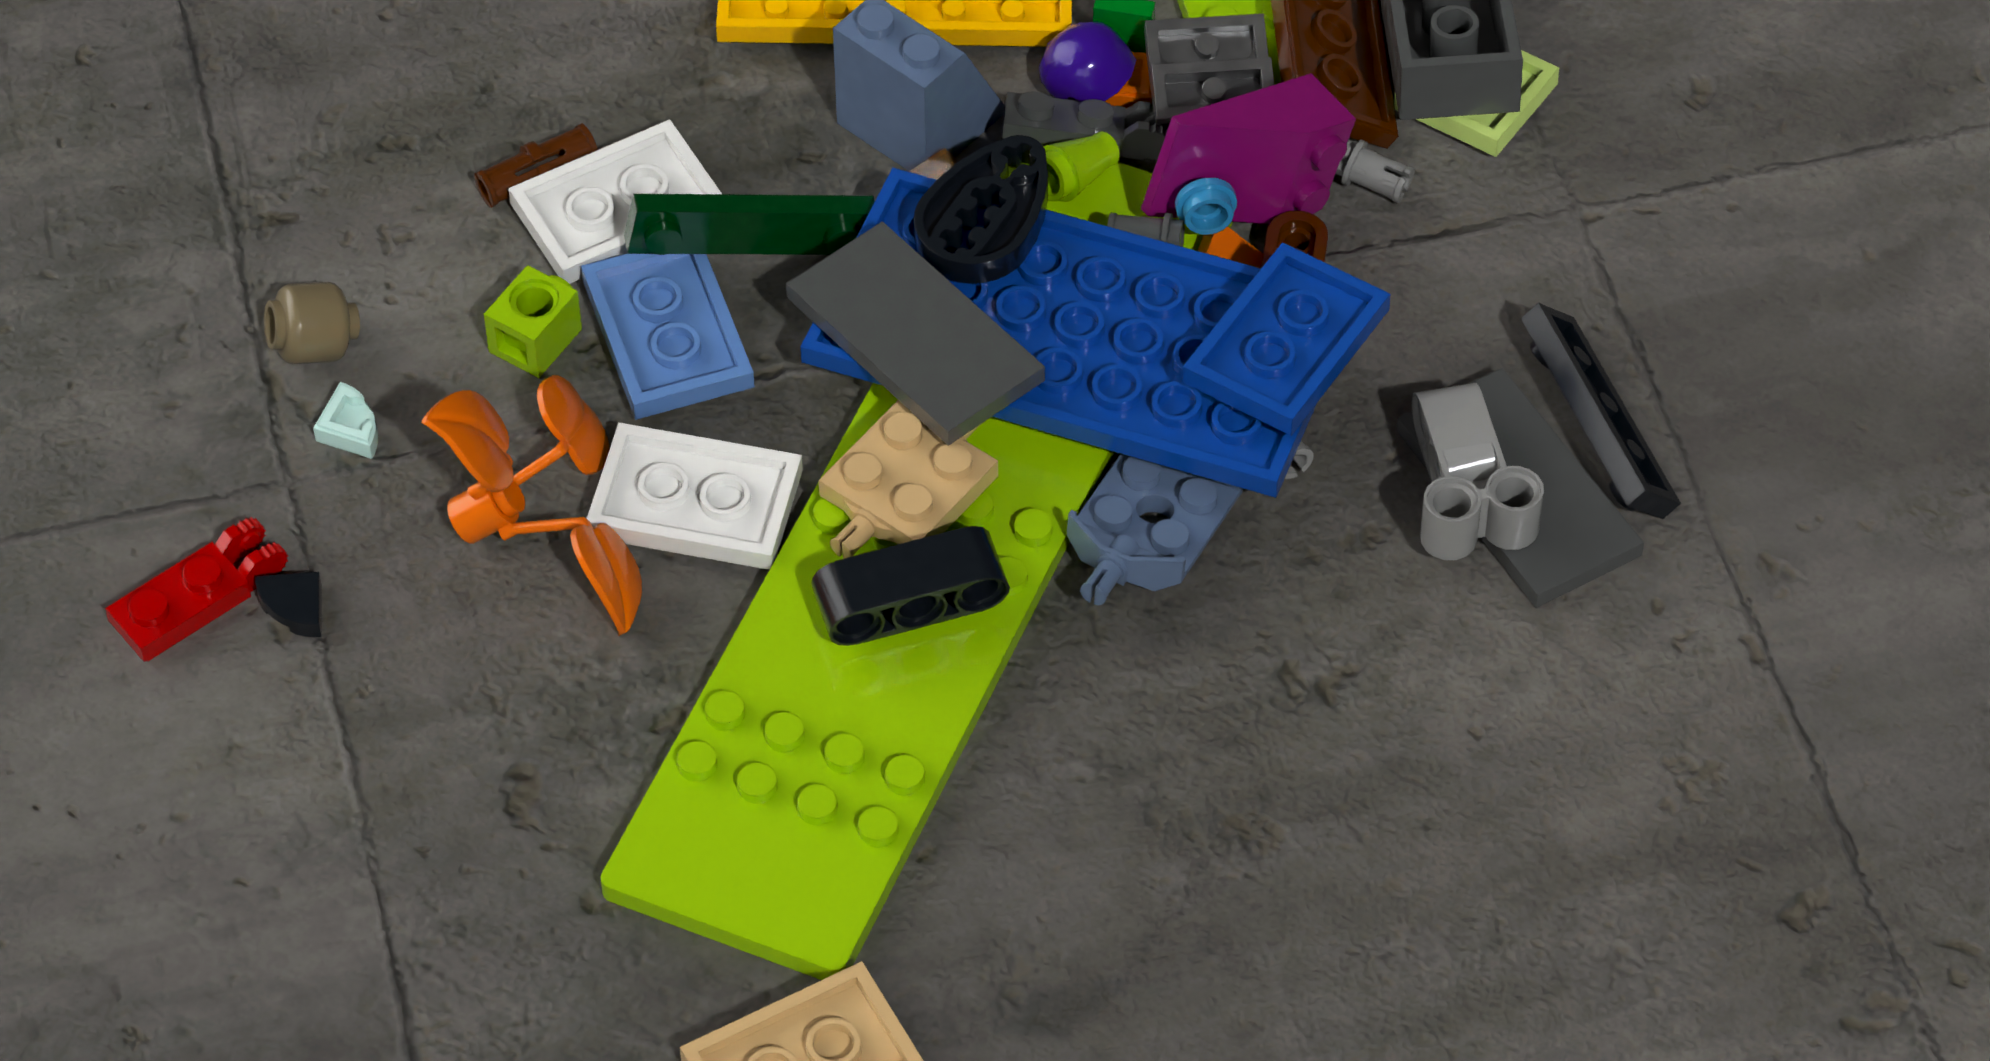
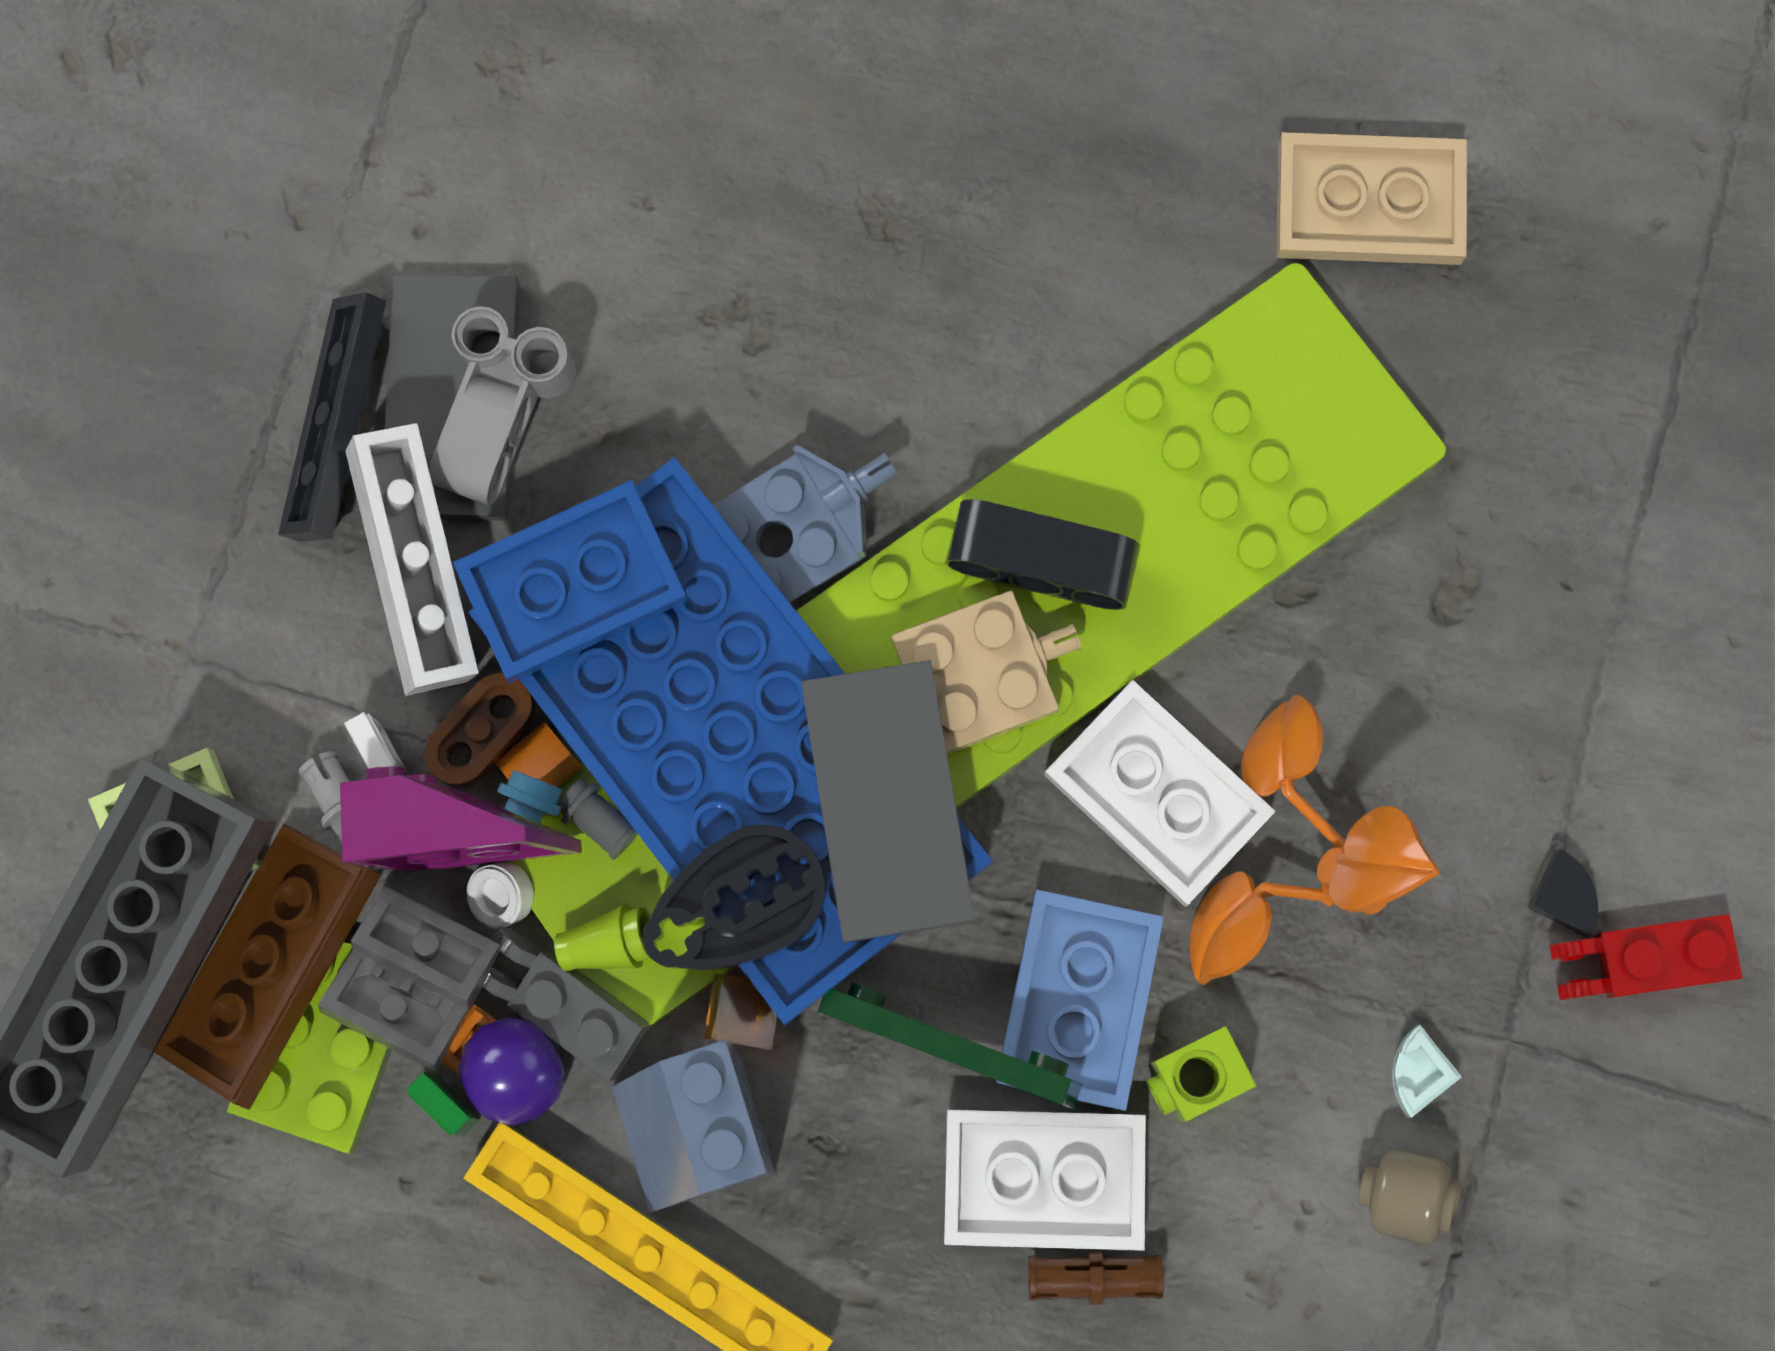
camera: 145 degrees left, 25 degrees up
(1364, 208) = (373, 742): none -> white tile
(1451, 324) = (411, 559): none -> white brick

